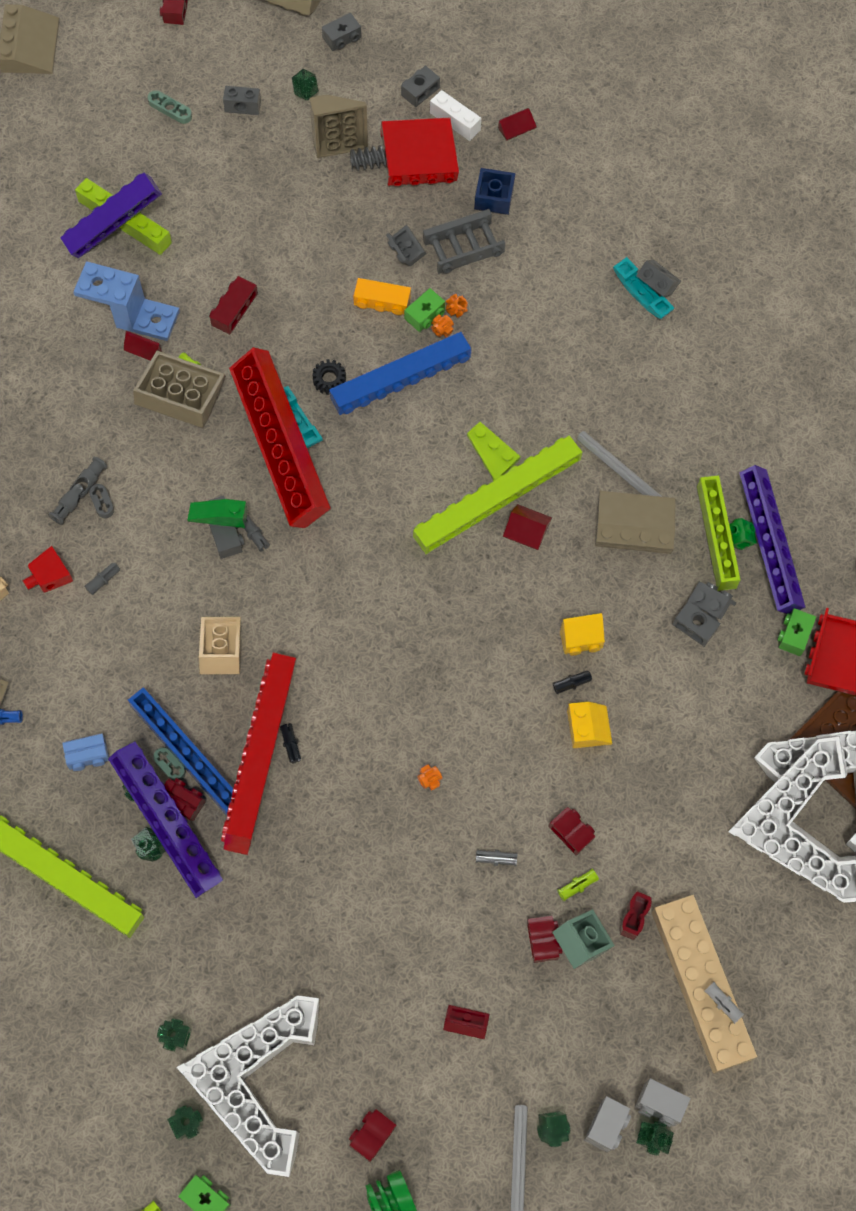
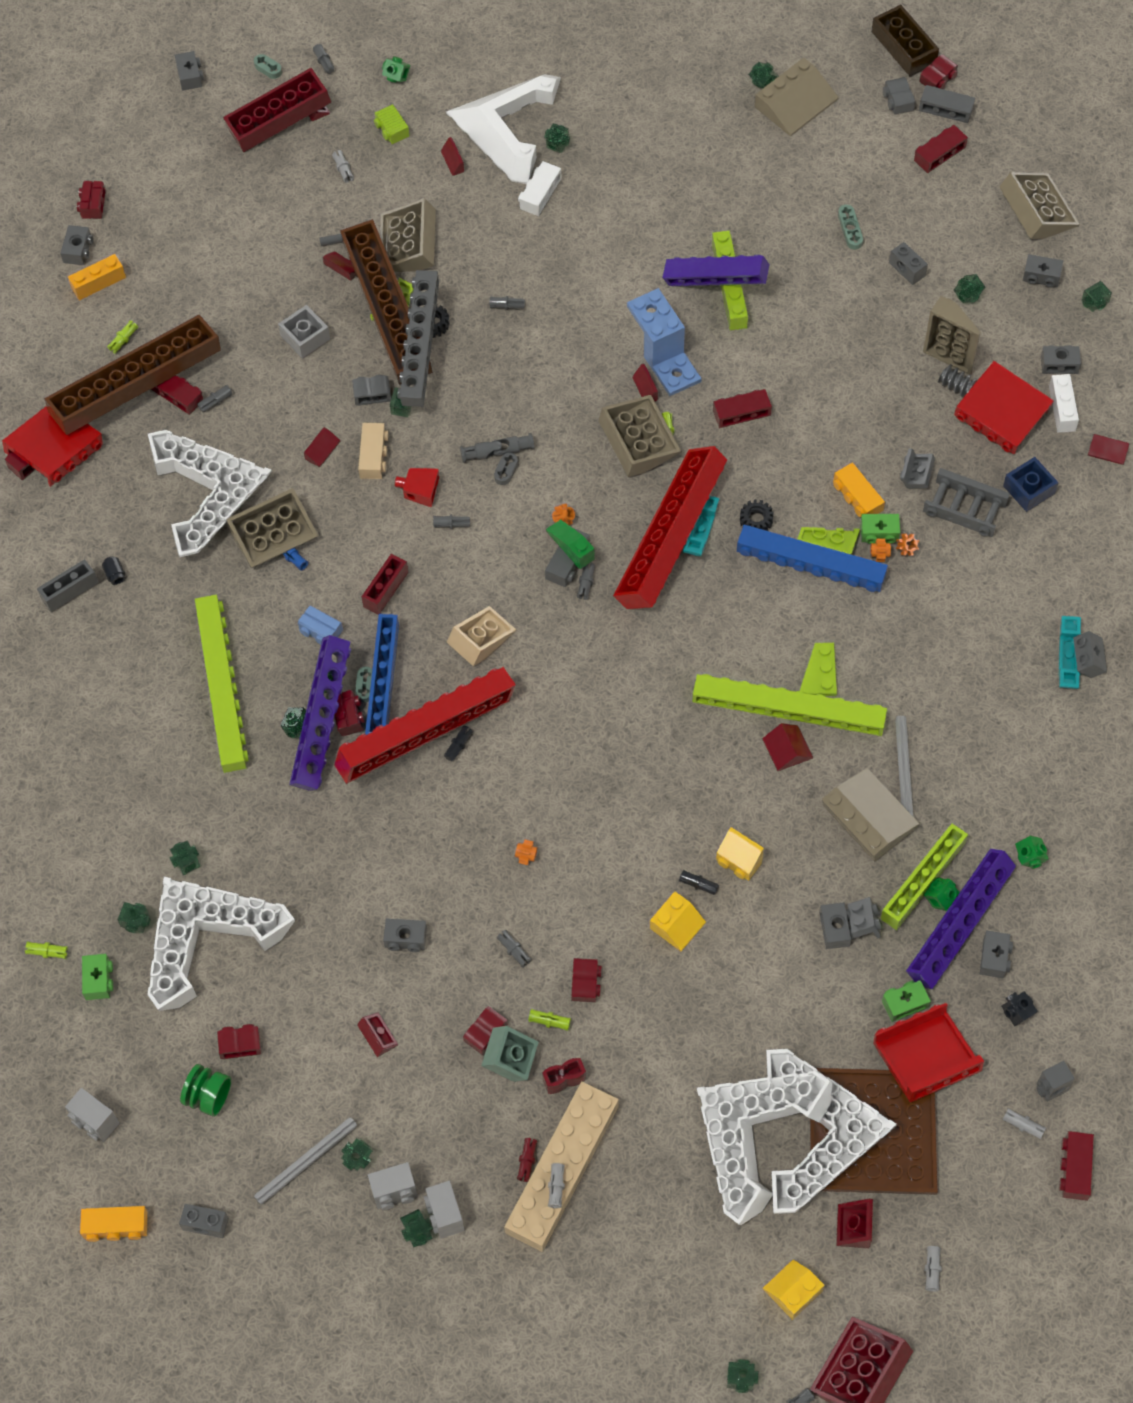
camera: 50 degrees right, 5 degrees down
(104, 672) = (385, 584): none -> dark red brick
(185, 497) = (564, 513): none -> orange gear
(397, 21) = (1096, 296): none -> clear green brick
(400, 346) = (834, 539): none -> lime wing
(413, 914) = (396, 927): none -> dark grey brick
(673, 1004) = (527, 1159): none -> dark red pin
(766, 450) = (1031, 852): none -> green brick
(817, 544) = (1000, 944): none -> dark grey brick

